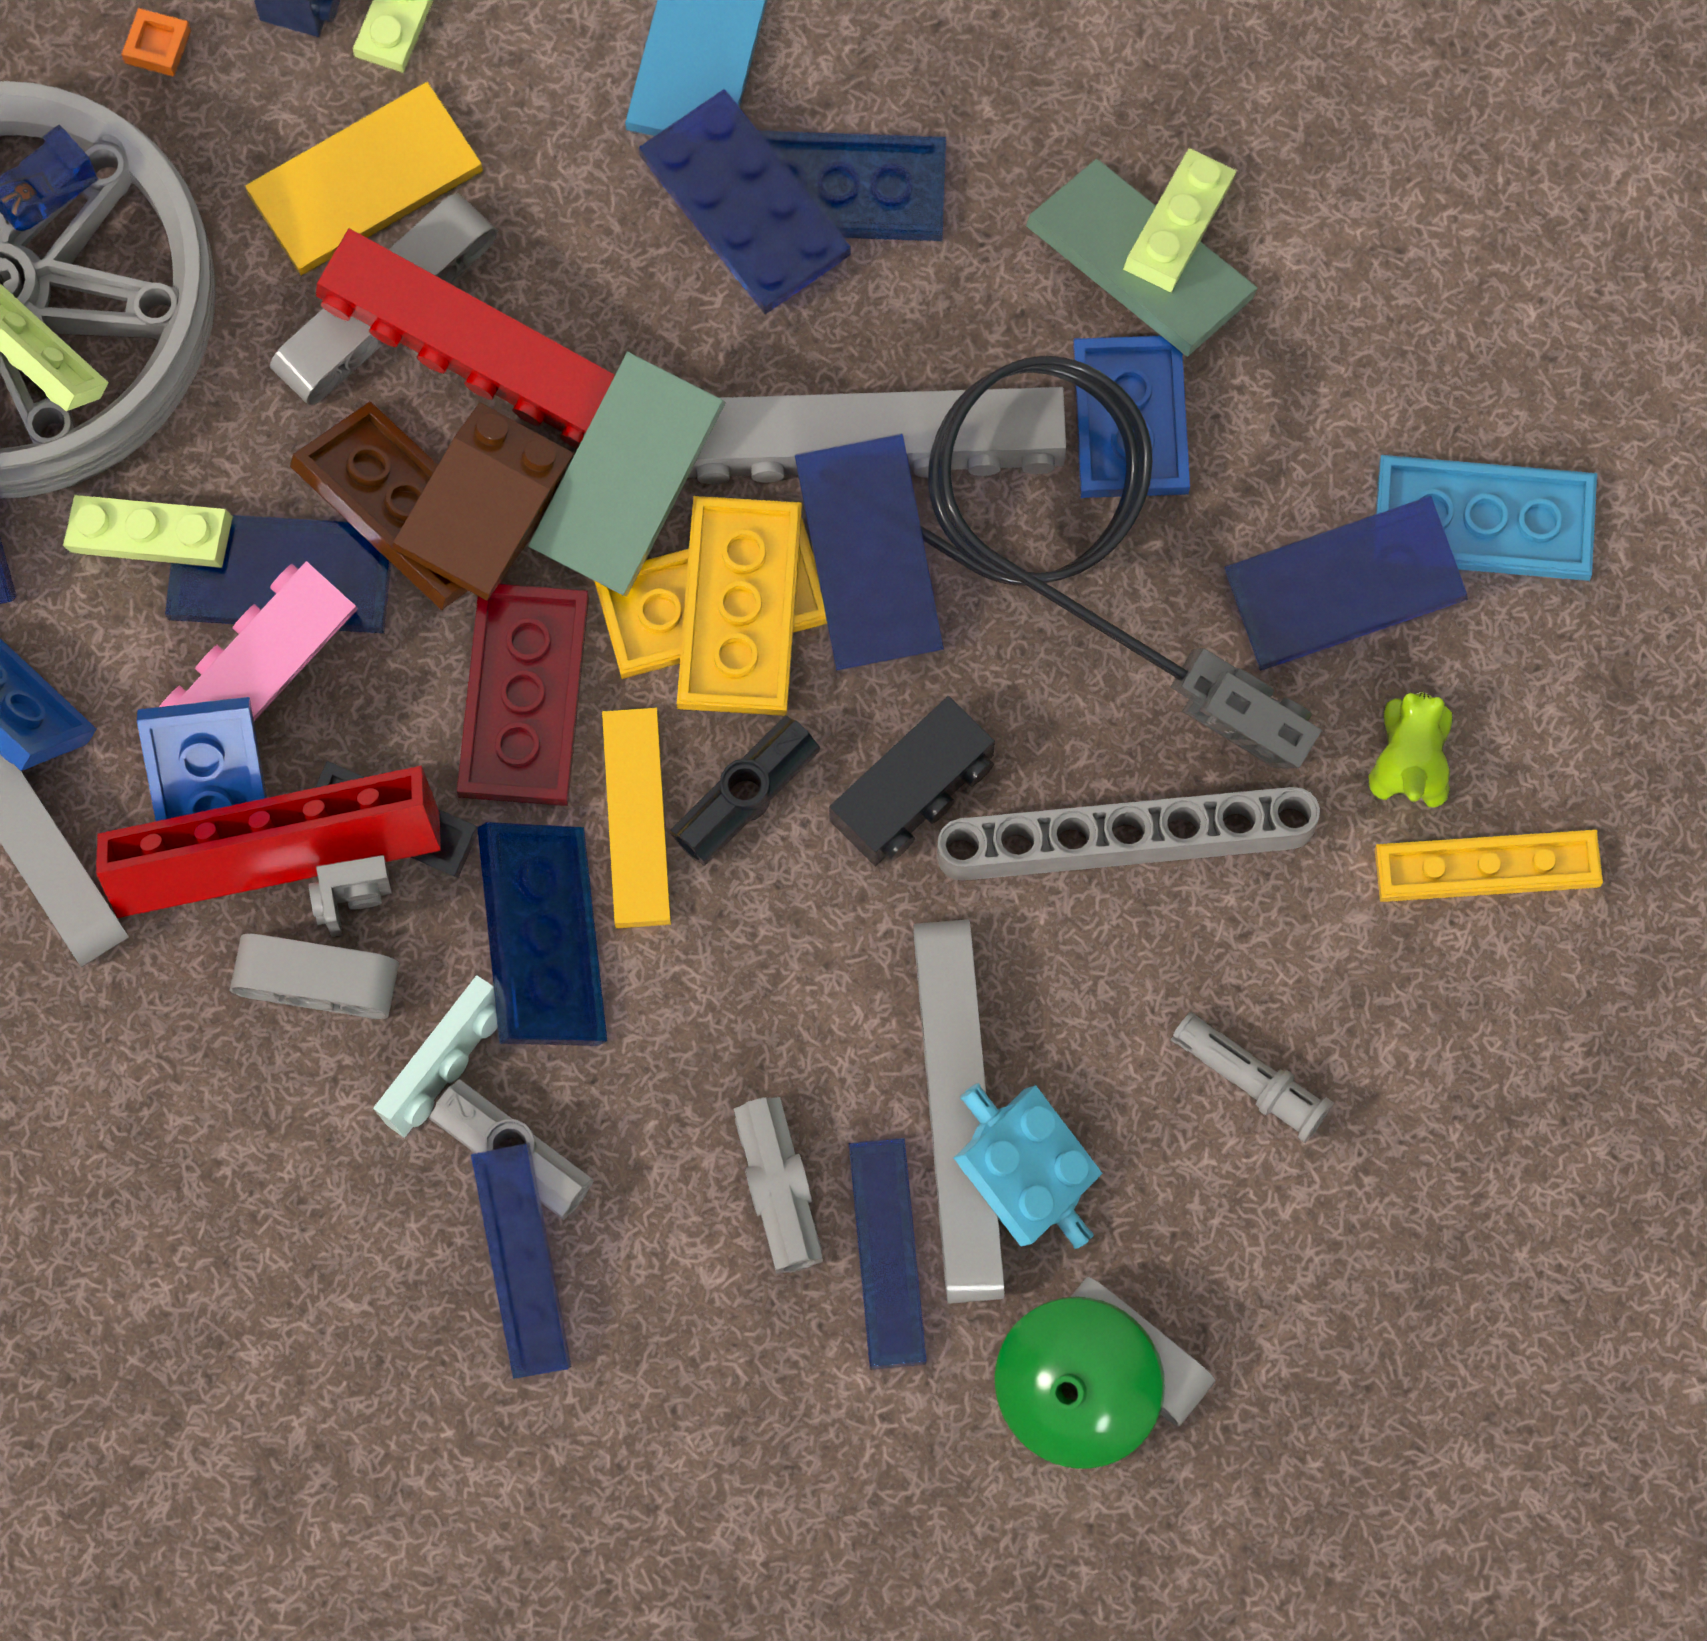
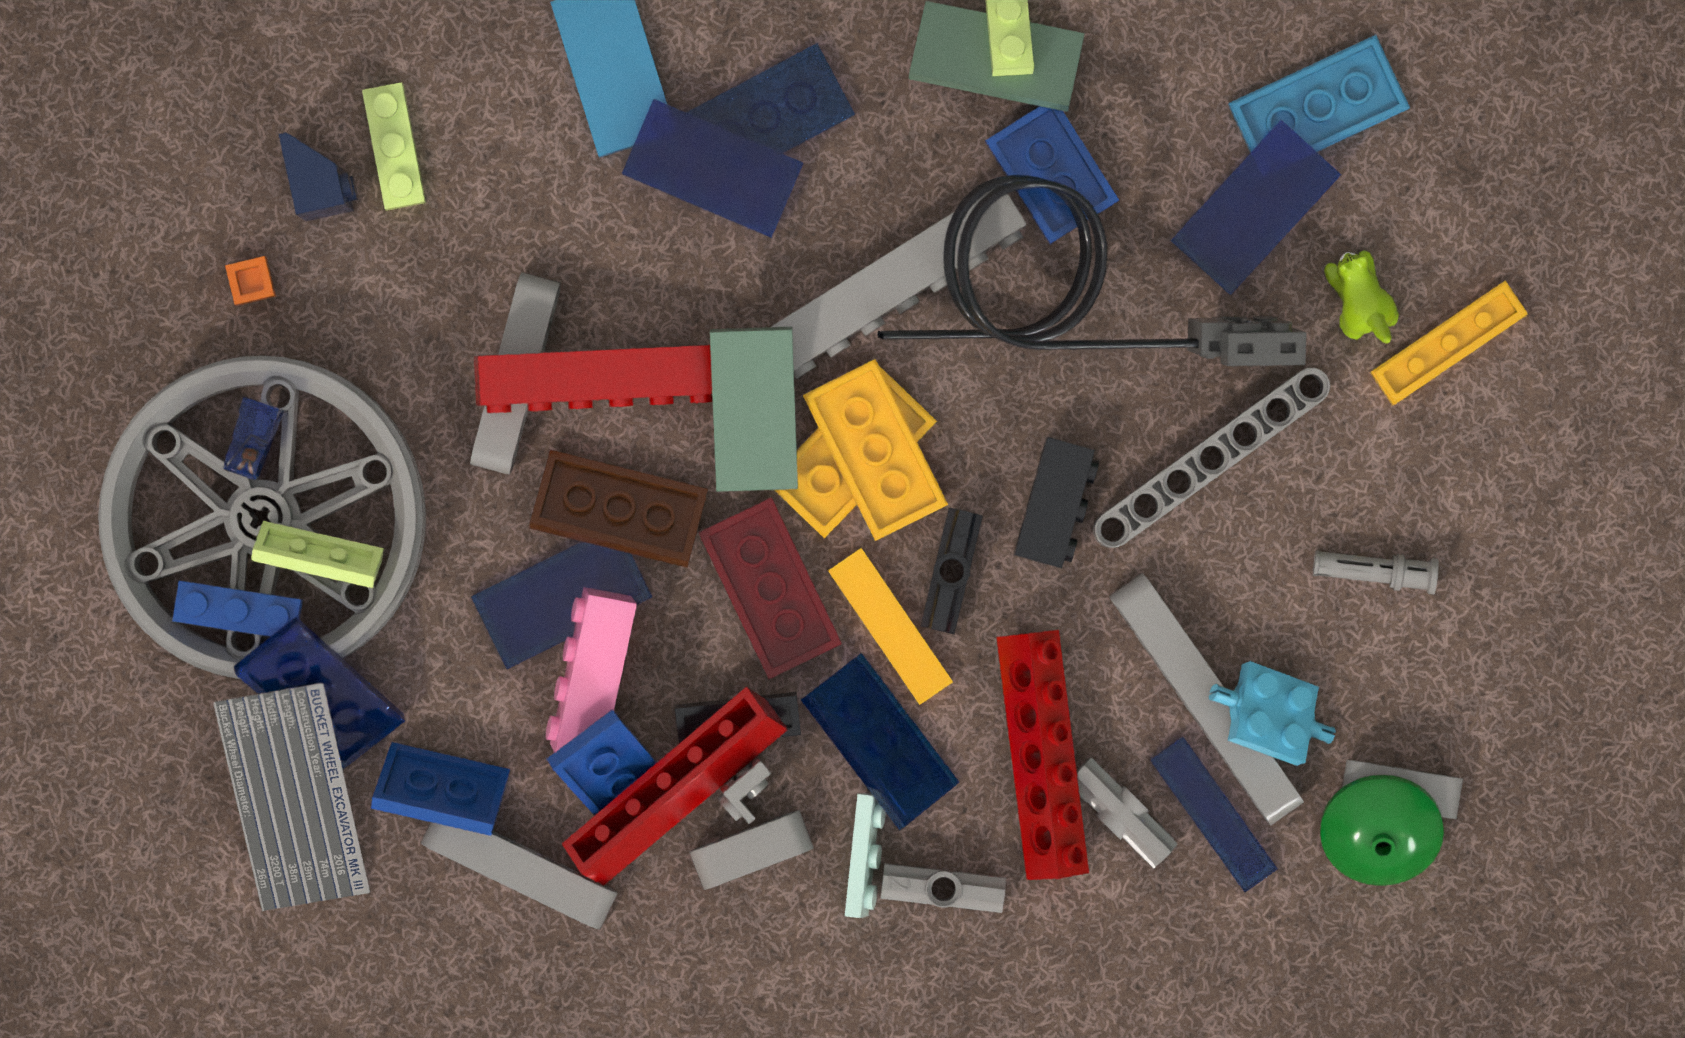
camera: 25 degrees left, 15 degrees up
(148, 531) = (461, 621): yellowish green plate -> none
(364, 177) = (448, 294): yellow tile -> none
(483, 501) = (672, 481): reddish brown slope -> none
(521, 1260) = (993, 955): clear blue tile -> none
(723, 1058) = (1042, 755): none -> red brick
(869, 551) = (940, 369): clear blue tile -> none

